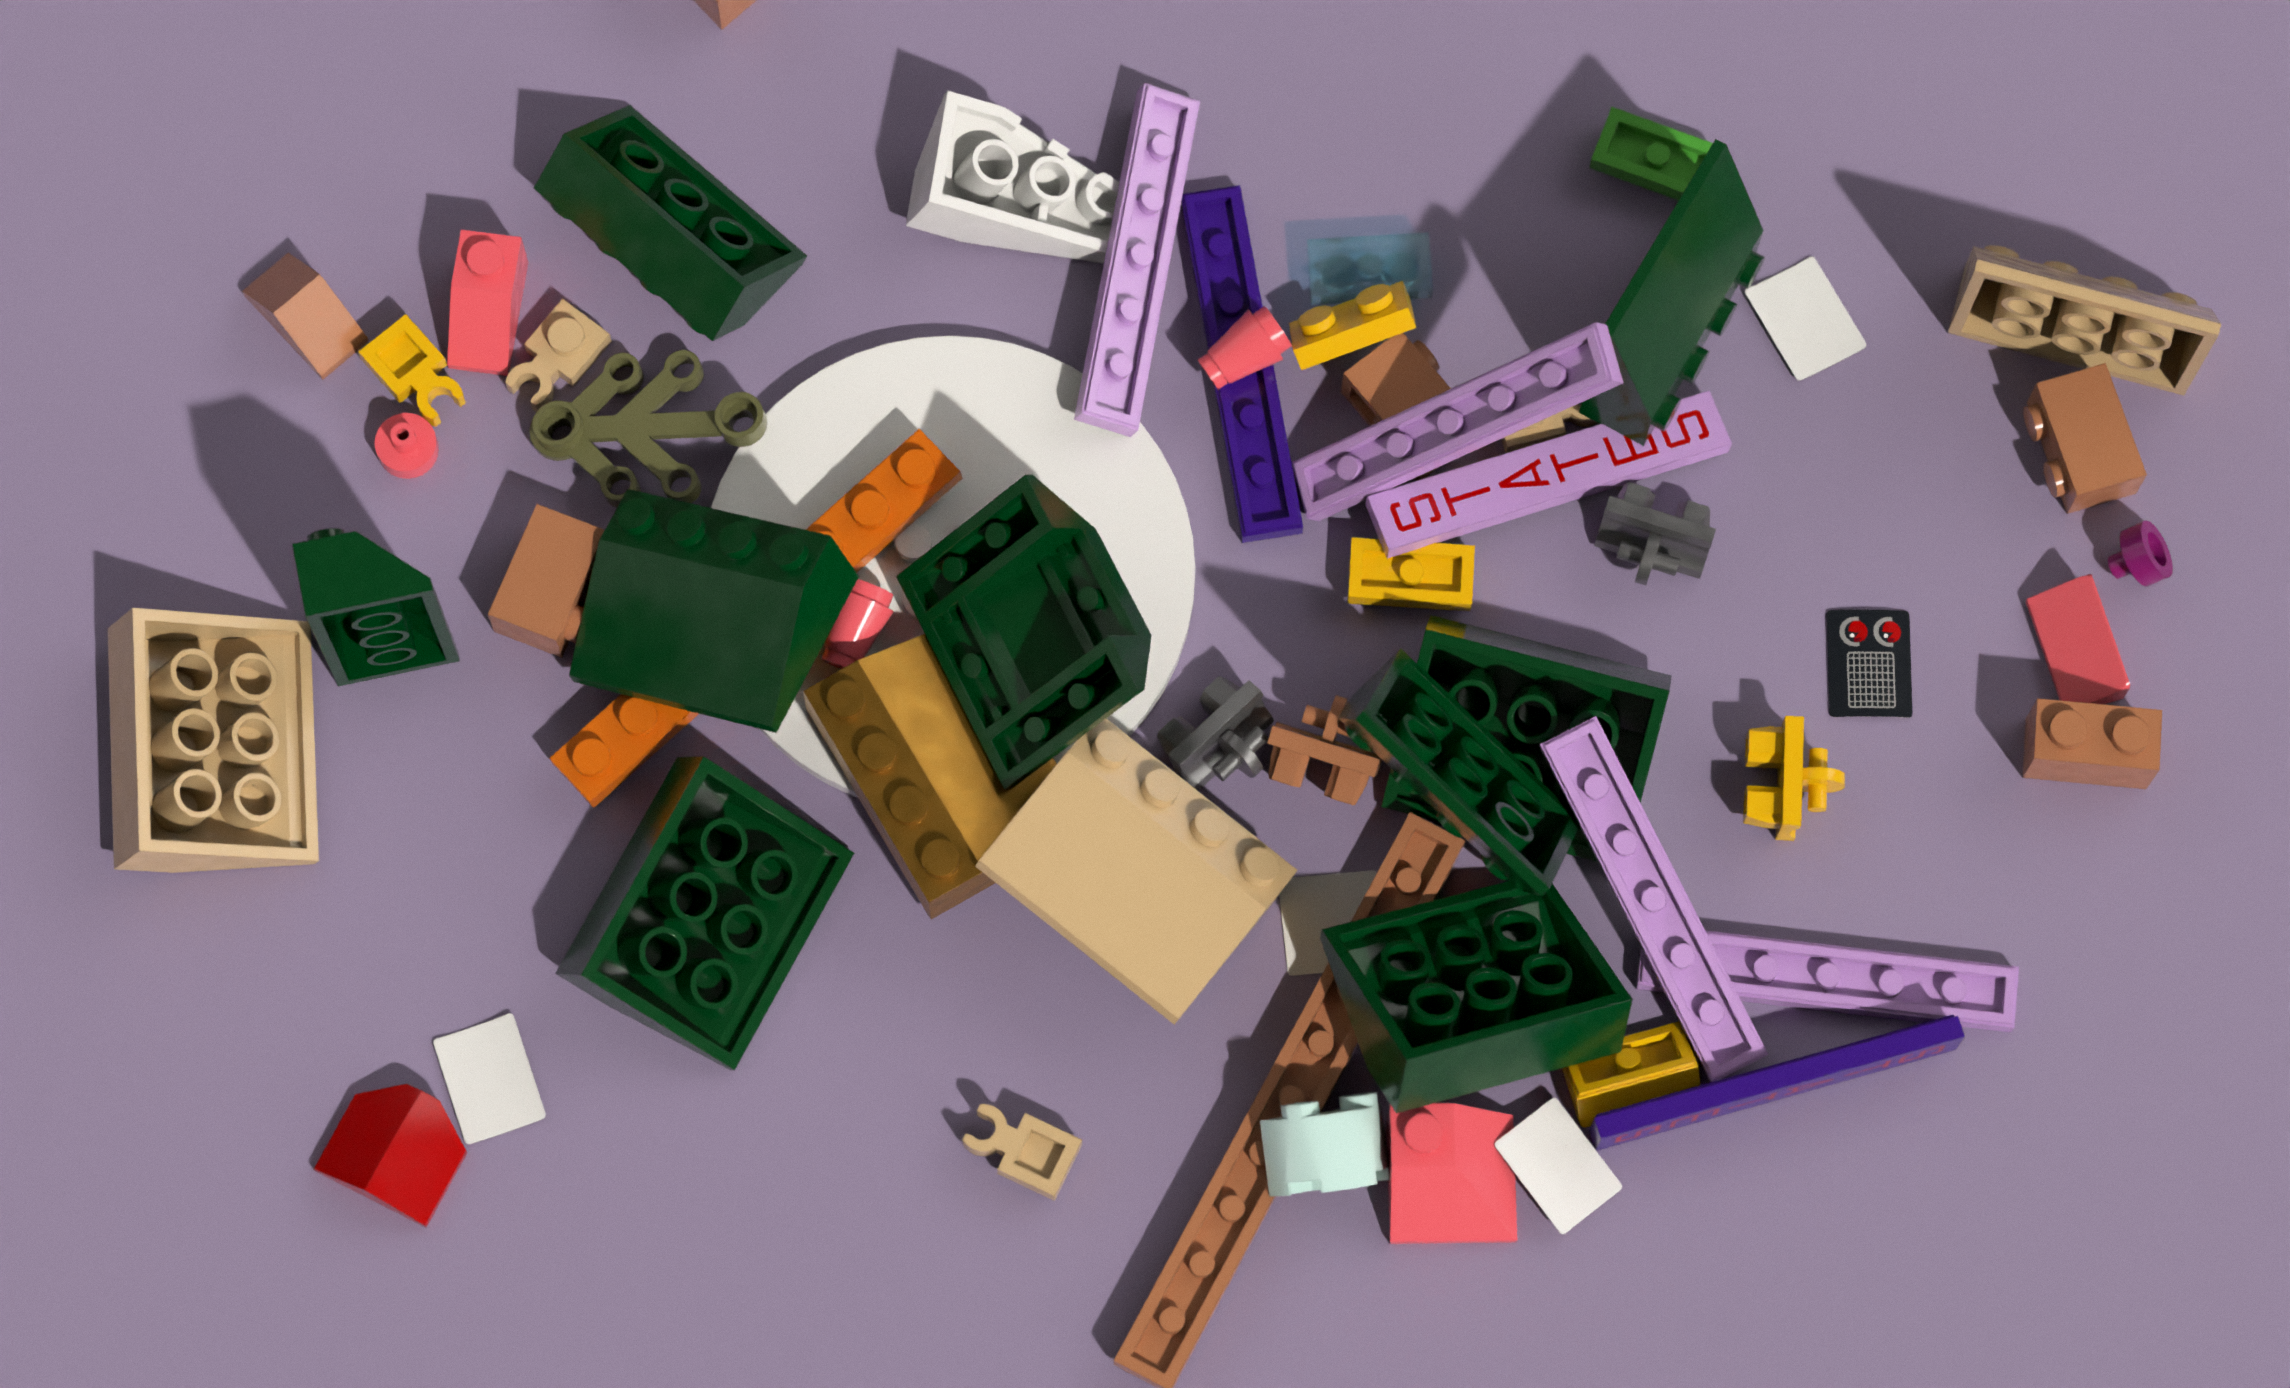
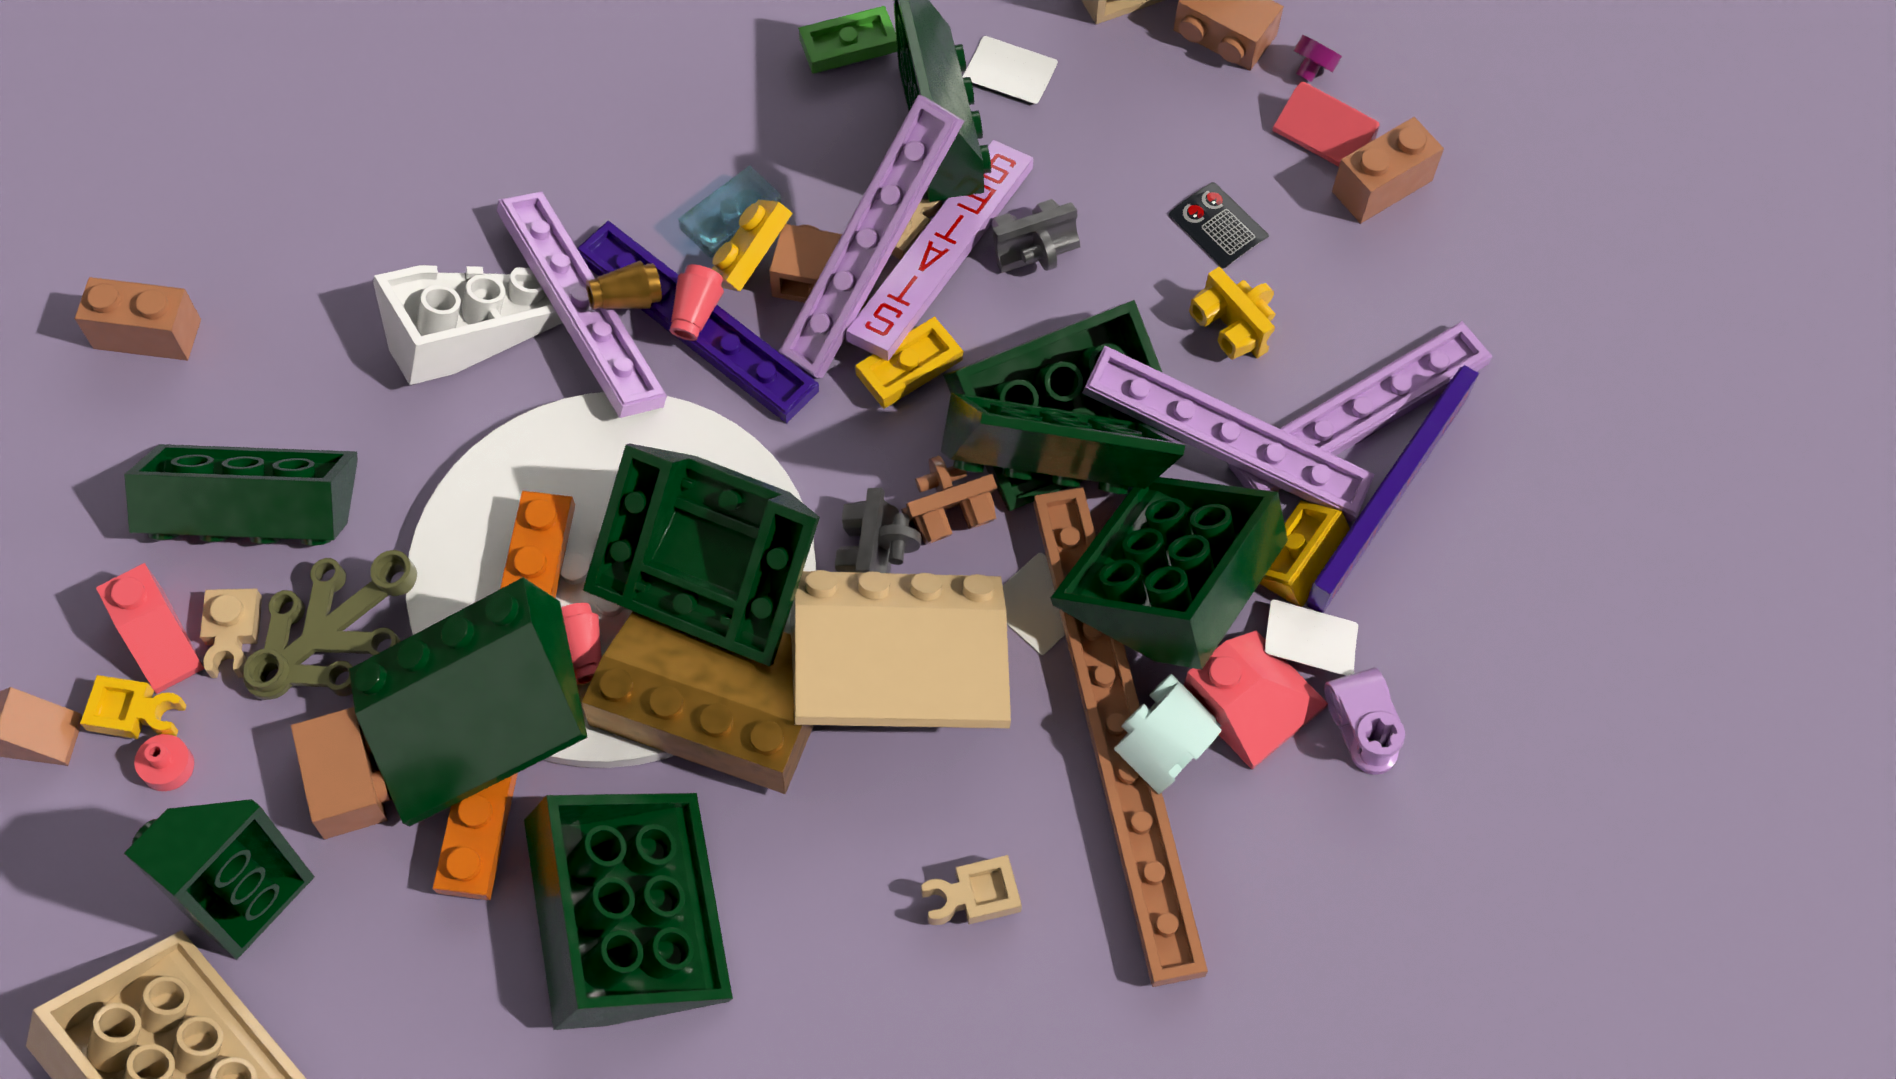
camera: 40 degrees left, 10 degrees down
(1187, 283) = (625, 288): none -> pearl gold cone
(1538, 1277) = (1365, 712): none -> lavender piece

